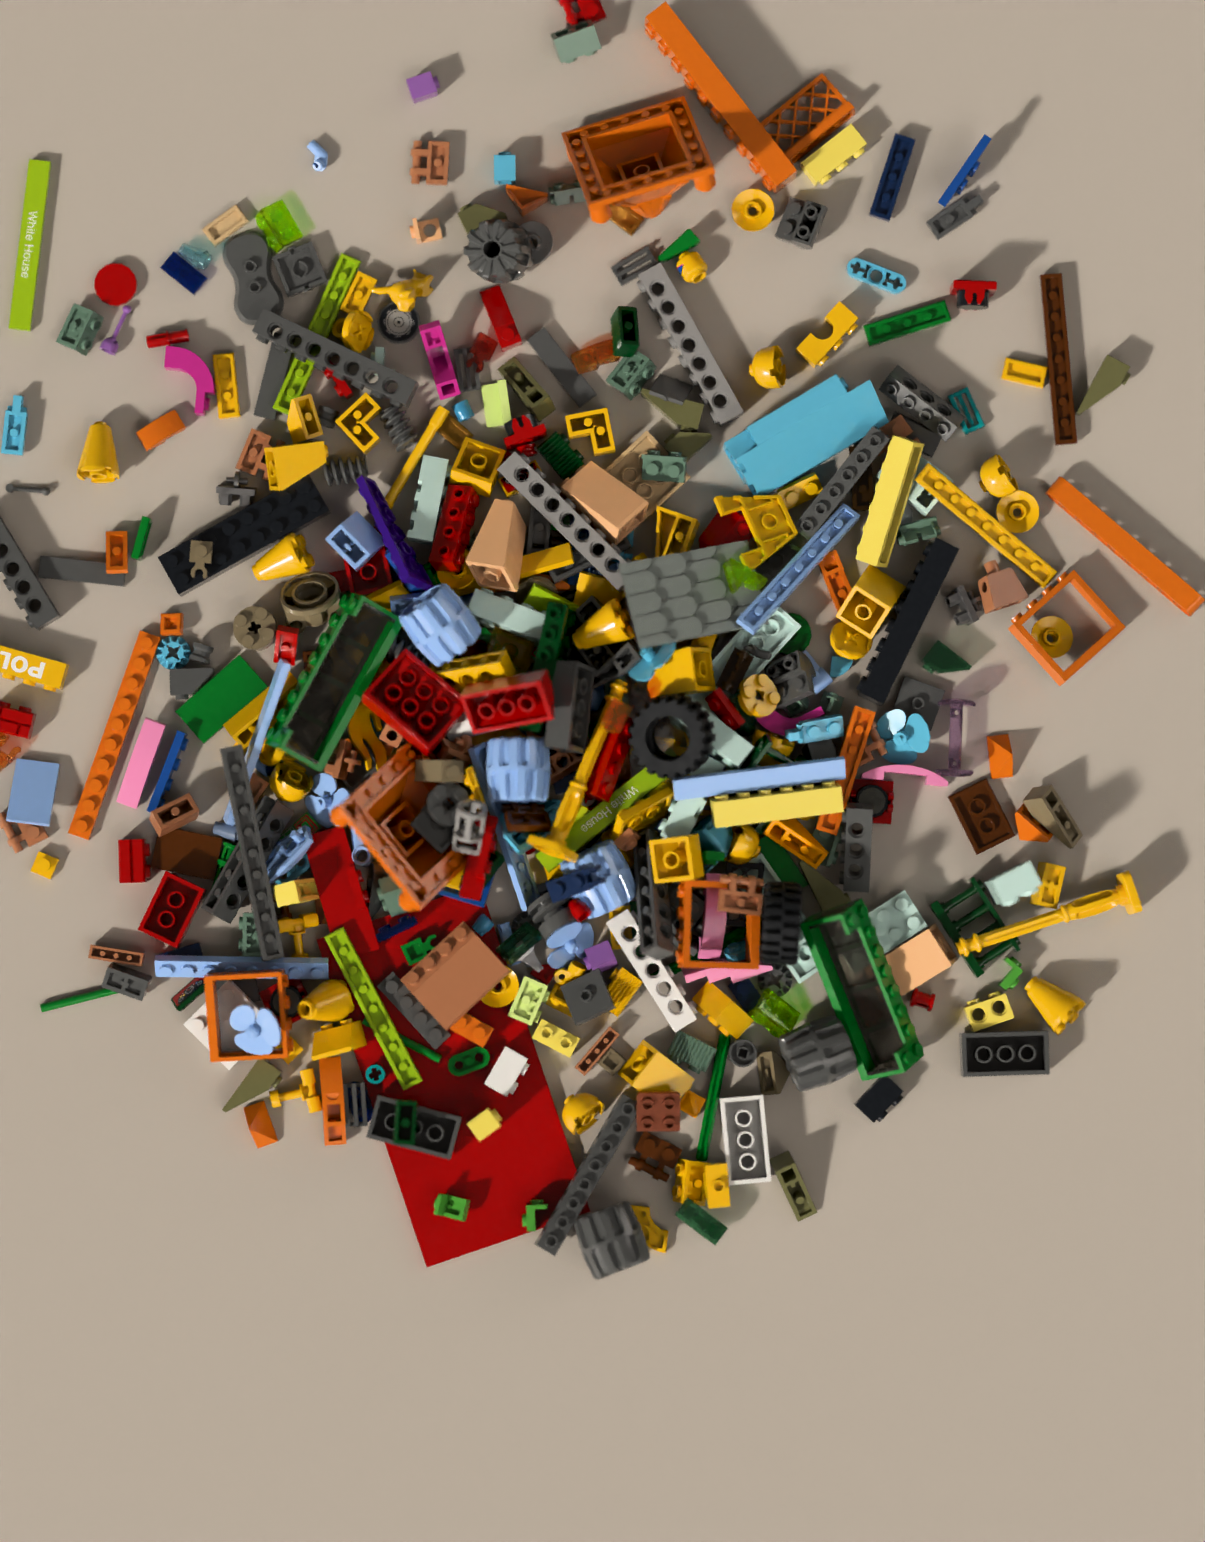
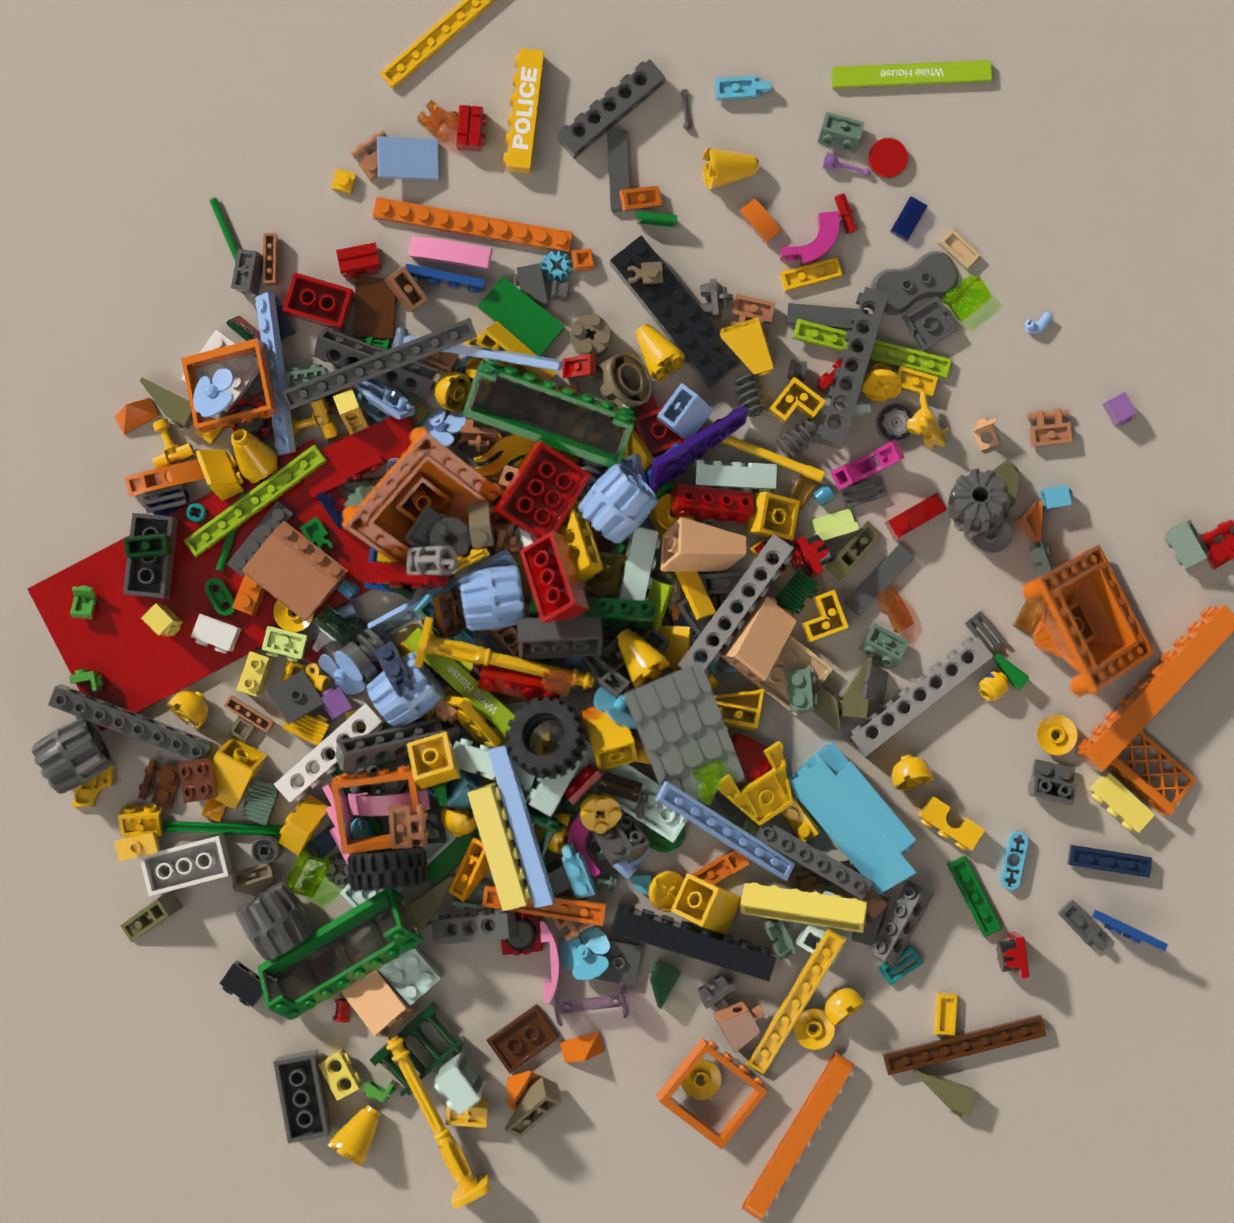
camera: 85 degrees right, 0 degrees up
(196, 256) = (926, 227): clear light blue cone -> none
(303, 419) = (791, 348): yellow slope -> none
(483, 349) = (883, 504): clear red plate -> none
(579, 910) = (372, 676): red hose -> none
(625, 331) = (922, 633): dark green brick -> none
(701, 1221) = (103, 836): clear green slope -> none

